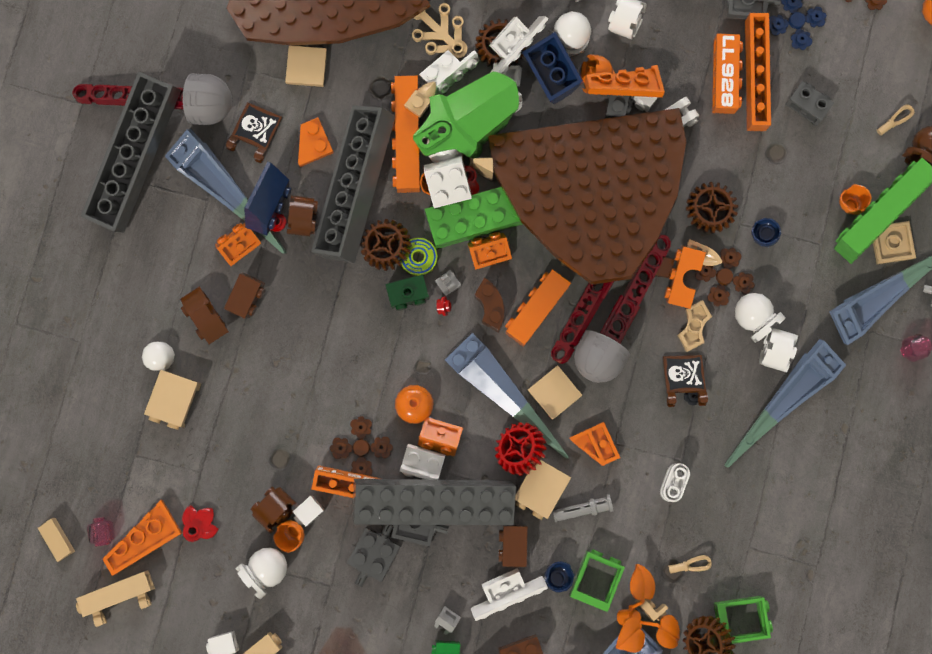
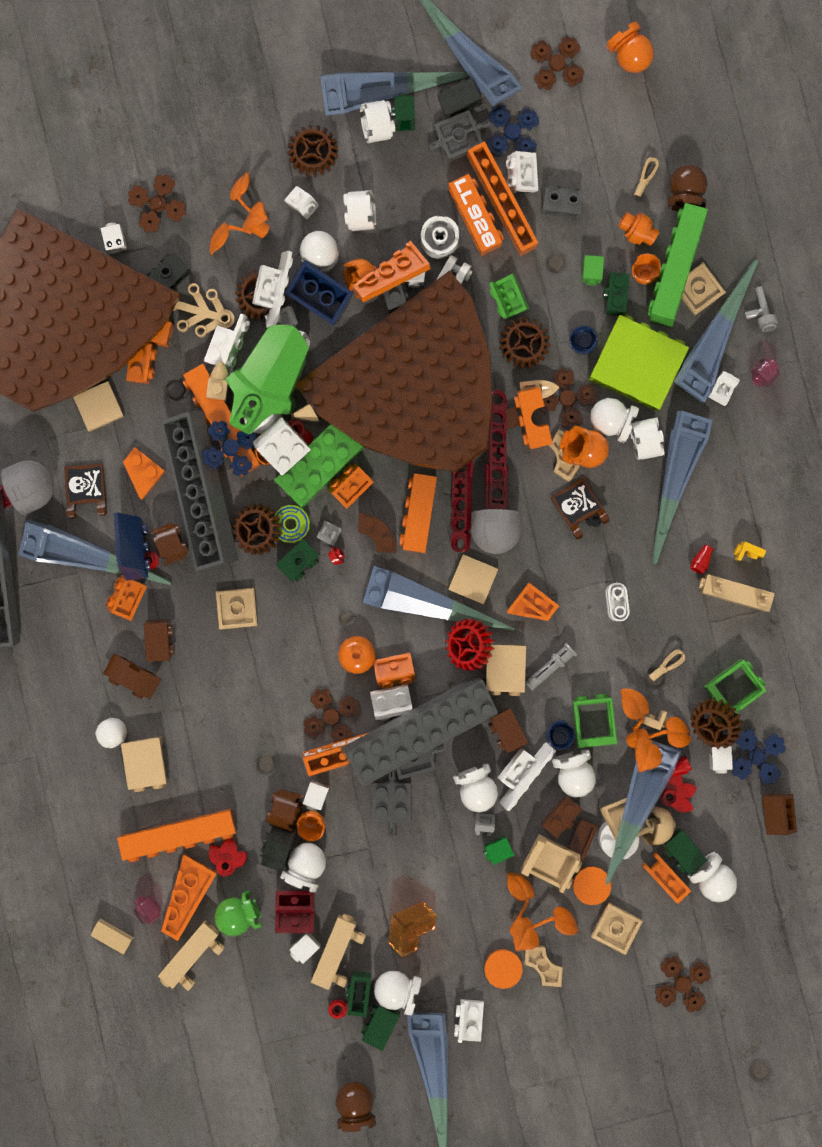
camera: 30 degrees left, 5 degrees up
(165, 479) = (177, 834): none -> orange brick
(178, 581) = (236, 915): none -> bright green tile
(231, 607) = (294, 911): none -> dark red brick
(247, 539) = (277, 848): none -> pearl dark grey brick
(329, 305) = (236, 608): none -> tan tile
(363, 49) = (140, 366): none -> orange bracket
(396, 35) = (164, 336): none -> orange brick
(401, 160) = (229, 448): none -> dark blue plant
(457, 585) = (477, 789): none -> white tile
(554, 620) = (575, 774): none -> white tile
(691, 68) = (439, 226): none -> white brick
(717, 327) = (584, 447): none -> orange tile
(718, 160) = (508, 297): none -> bright green bracket
(771, 486) = (701, 561): none -> red cone
(787, 58) = (522, 172): none -> white bracket
(788, 532) = (736, 592): none -> tan brick
(805, 279) = (639, 362): none -> lime brick
(806, 175) = (592, 270): none -> bright green brick
(817, 207) = (616, 294): none -> dark green brick
(821, 499) = (752, 551): none -> yellow bracket
(866, 160) = (638, 228): none -> orange piece
(871, 341) = (723, 388): none -> white bracket

